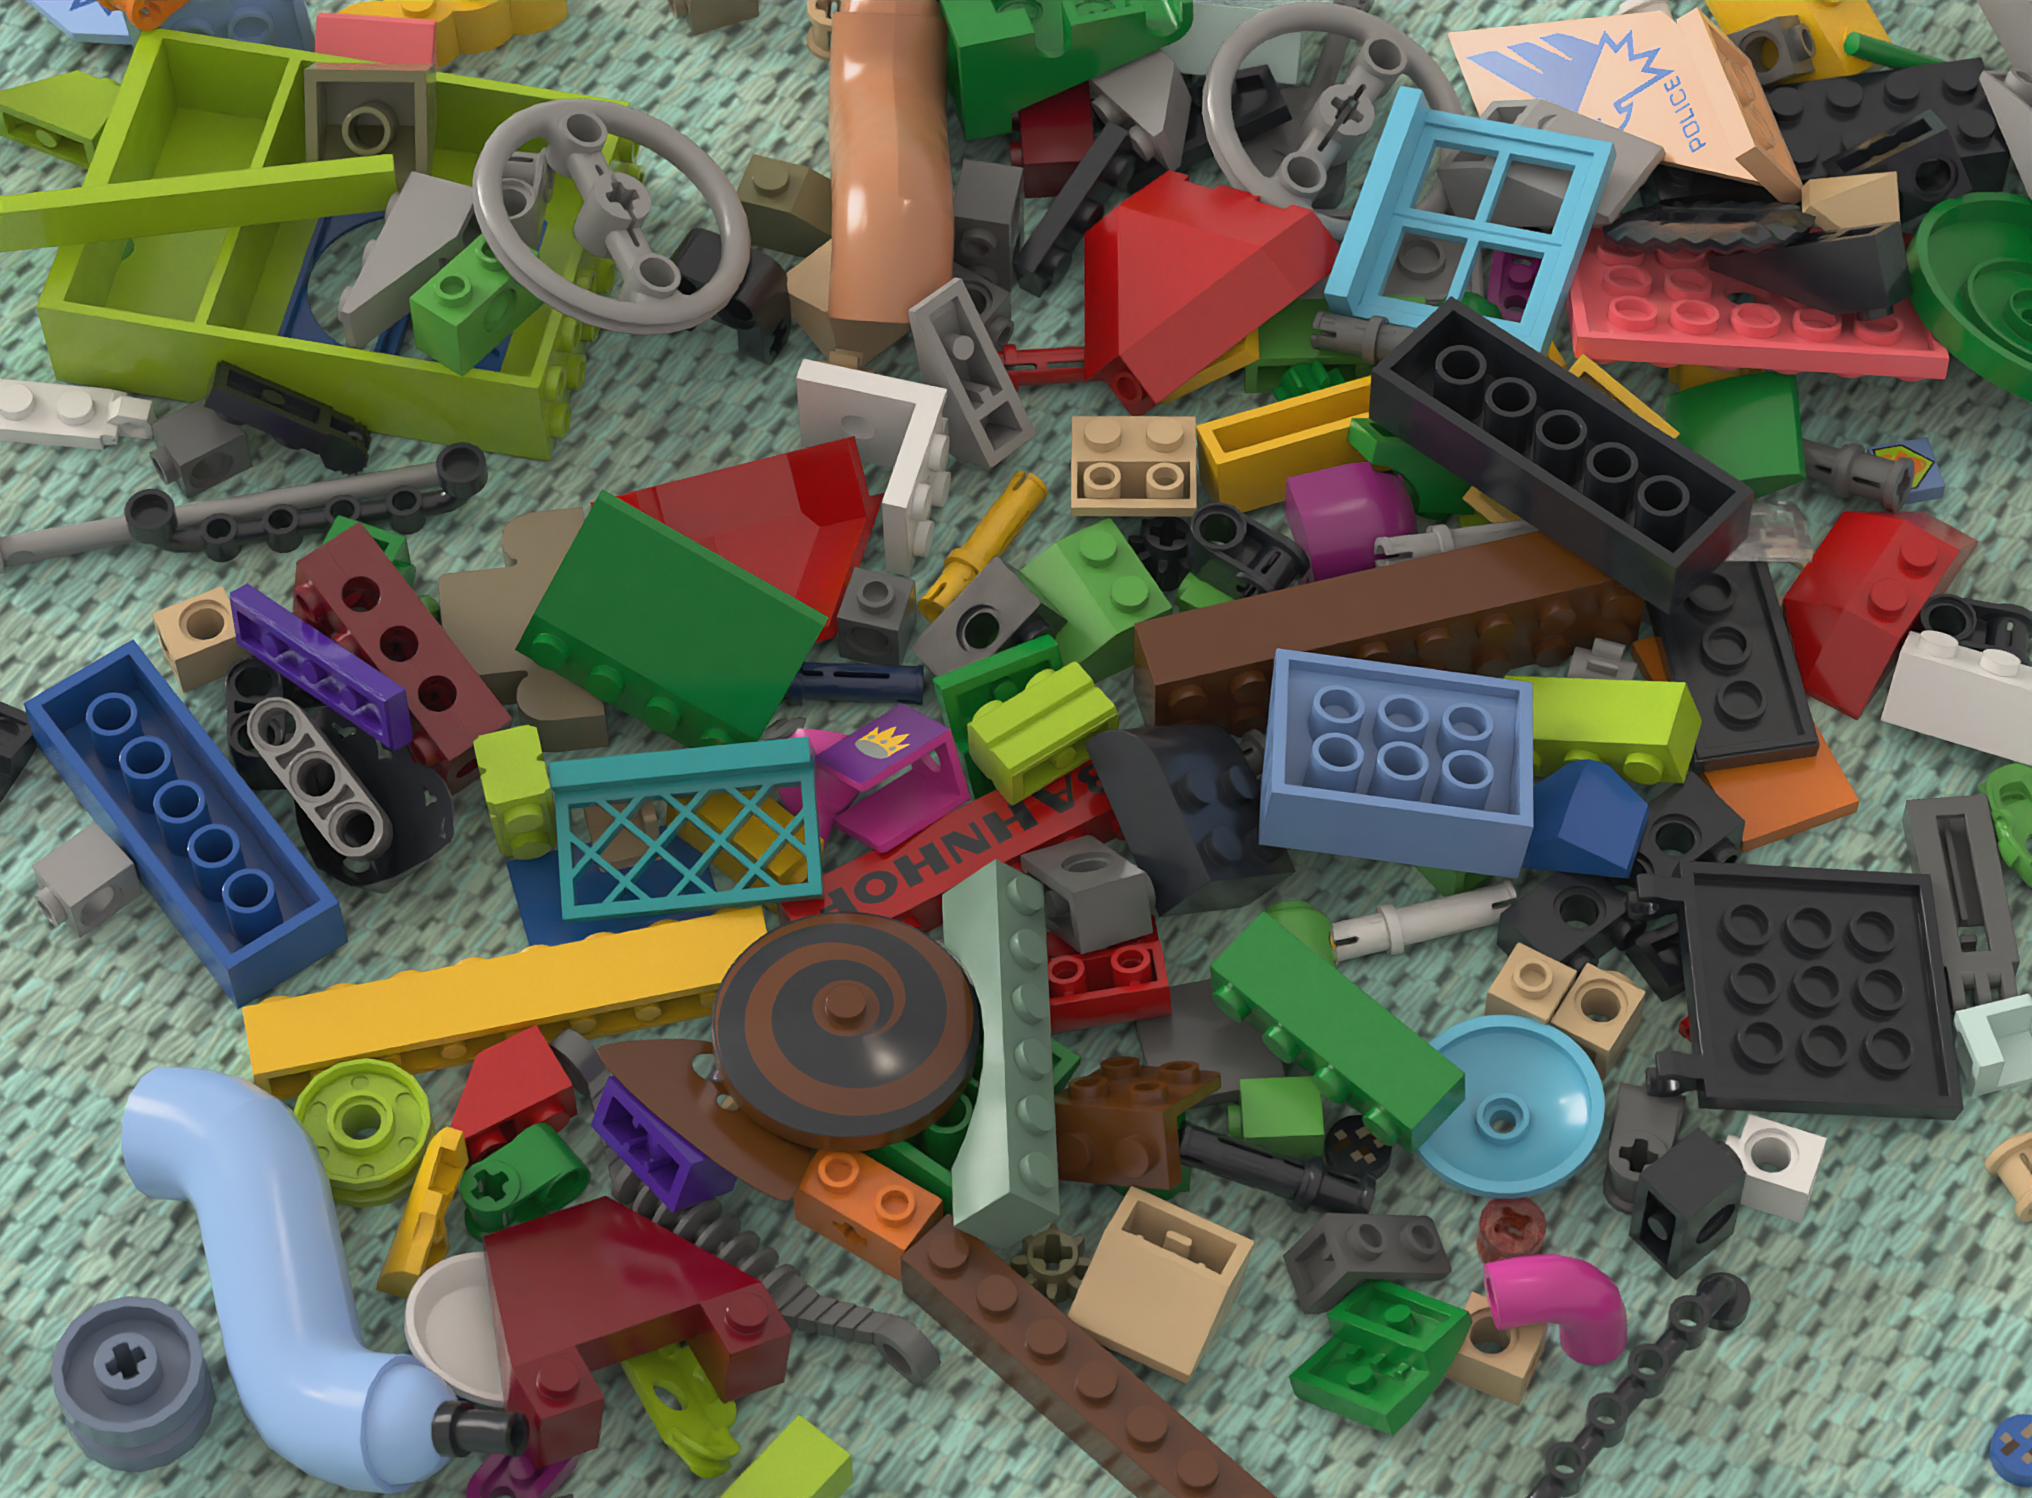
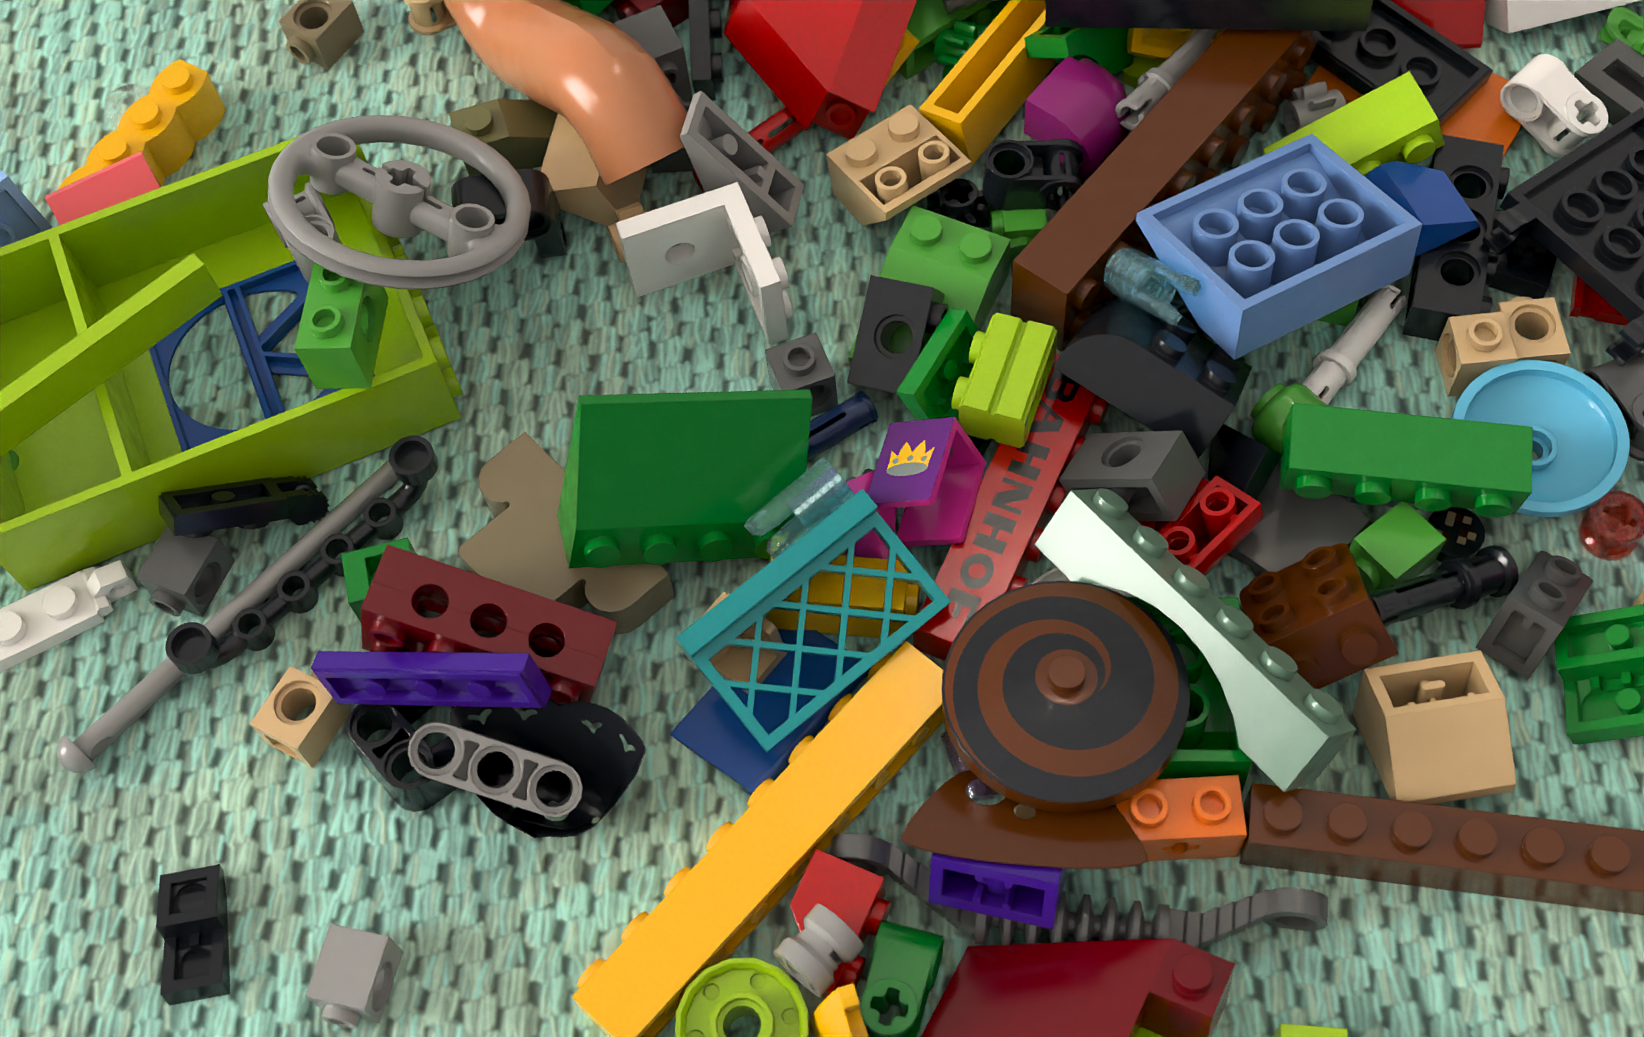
camera: 30 degrees left, 5 degrees up
(186, 823) = (404, 873): blue brick -> none
(372, 112) = (149, 236): olive slope -> none
(420, 236) = (264, 311): light grey slope -> none
(463, 1095) = (819, 949): none -> light grey wheel
(517, 791) = (653, 675): lime brick -> none
(758, 717) = (809, 497): none -> clear light blue hinge
(783, 518) = (672, 341): red panel -> none
(988, 539) = (830, 302): yellow pin -> none
(1057, 1248) = (1356, 759): olive gear -> none
(1192, 958) = (1241, 461): none -> black slope
(1232, 735) = (1147, 283): none -> clear light blue hinge
(1842, 806) = (1548, 100): none -> white piece

